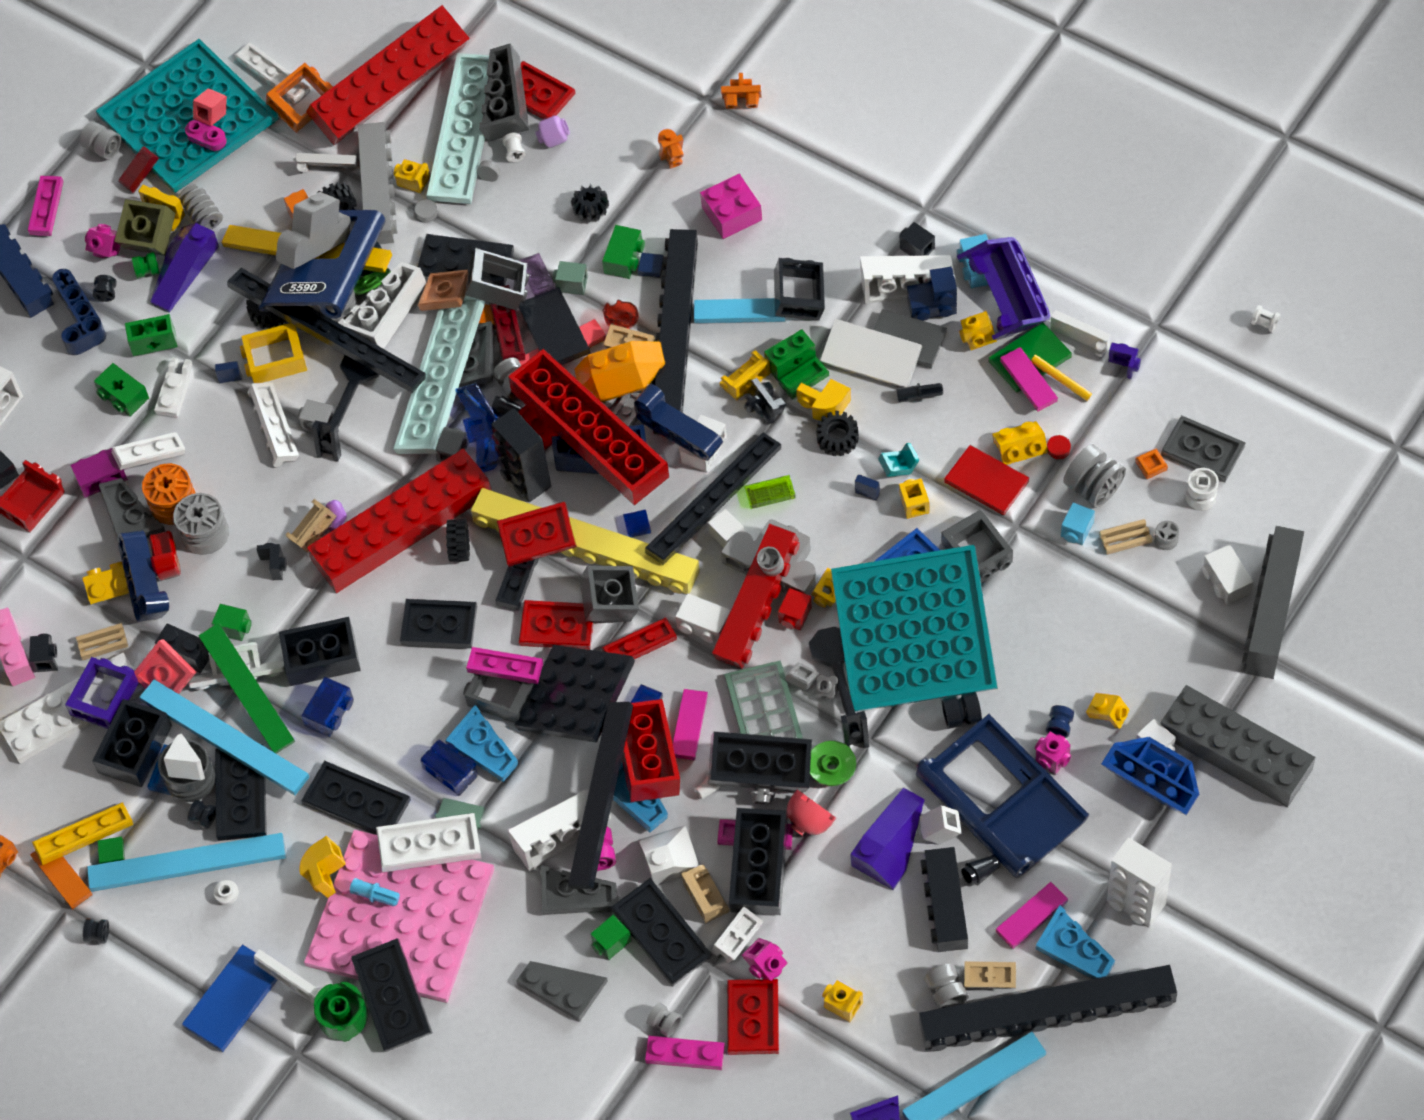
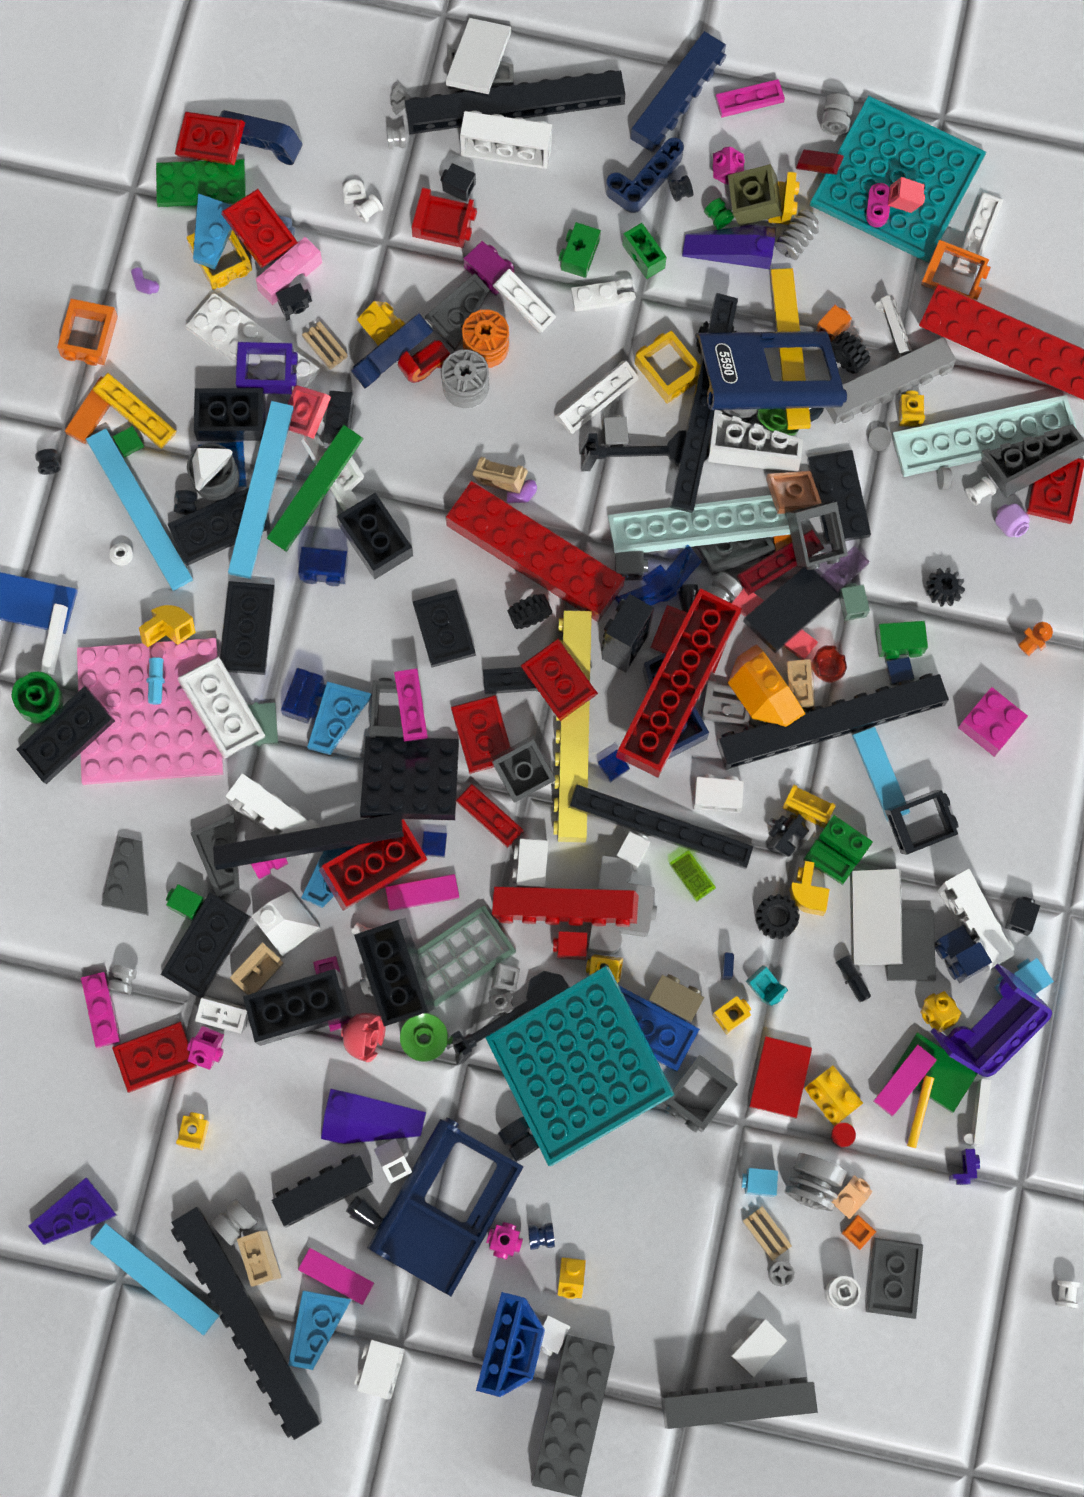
camera: 60 degrees right, 15 degrees up
(228, 372) = (634, 334): dark blue tile -> none
(233, 621) = (379, 447): green brick -> none
(274, 553) = (454, 461): black bracket -> none
(315, 230) = (792, 346): light grey brick -> none
(675, 425) = (717, 763): dark blue beam -> none
(768, 556) = (588, 903): light grey wheel -> none
(879, 537) = (676, 998): none -> dark tan brick
(1120, 453) = (852, 1196): none -> light nougat bracket

